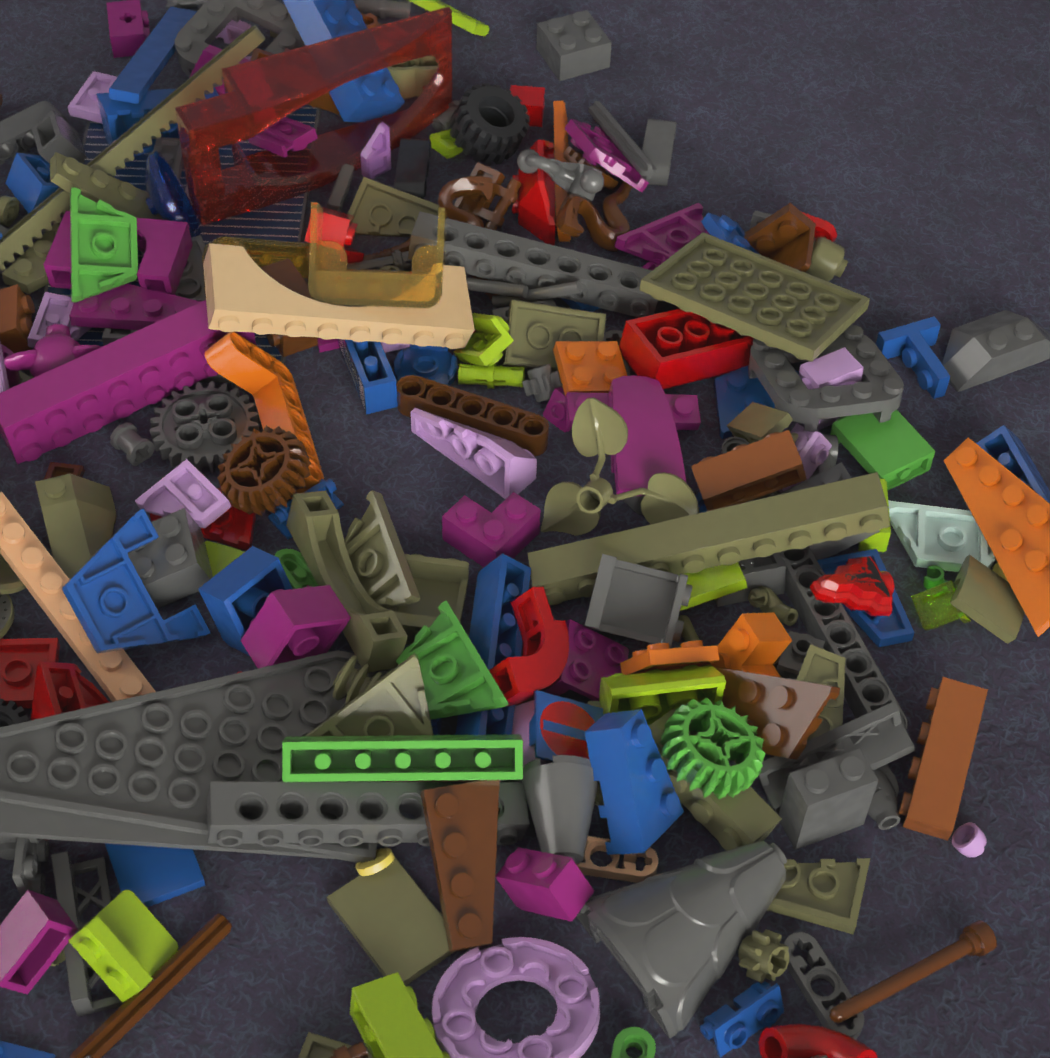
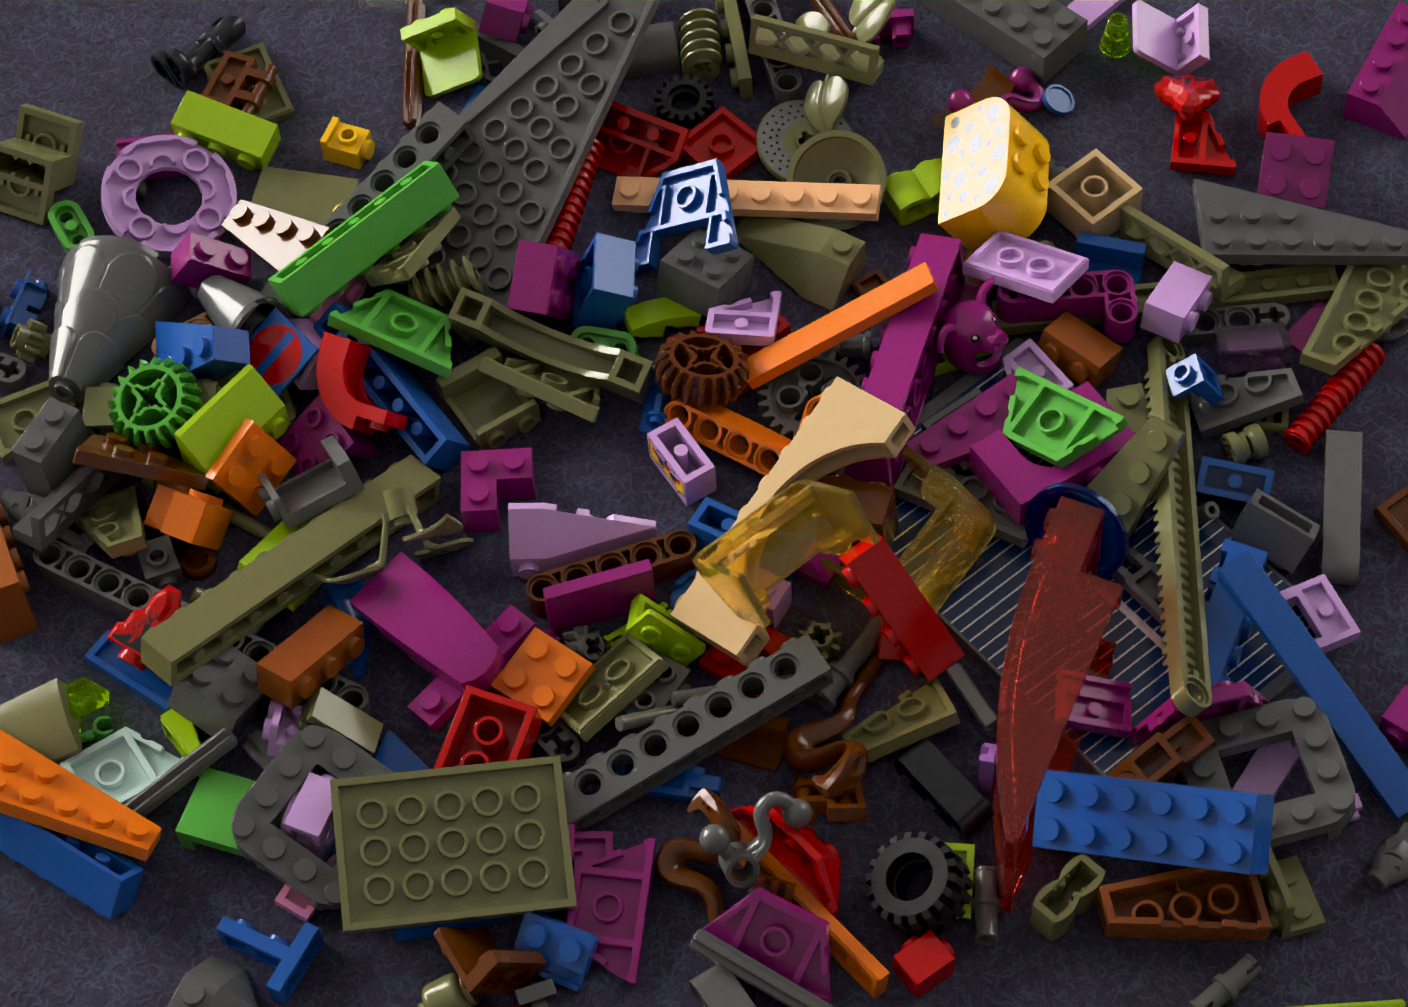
camera: 145 degrees right, 5 degrees up
(135, 414) = (841, 325): none -> orange tile
(301, 951) = (347, 144): none -> yellow brick
(345, 442) = (682, 461): none -> lavender brick
(502, 383) = (597, 596): none -> magenta tile
(905, 481) = (183, 772): none -> dark grey axle

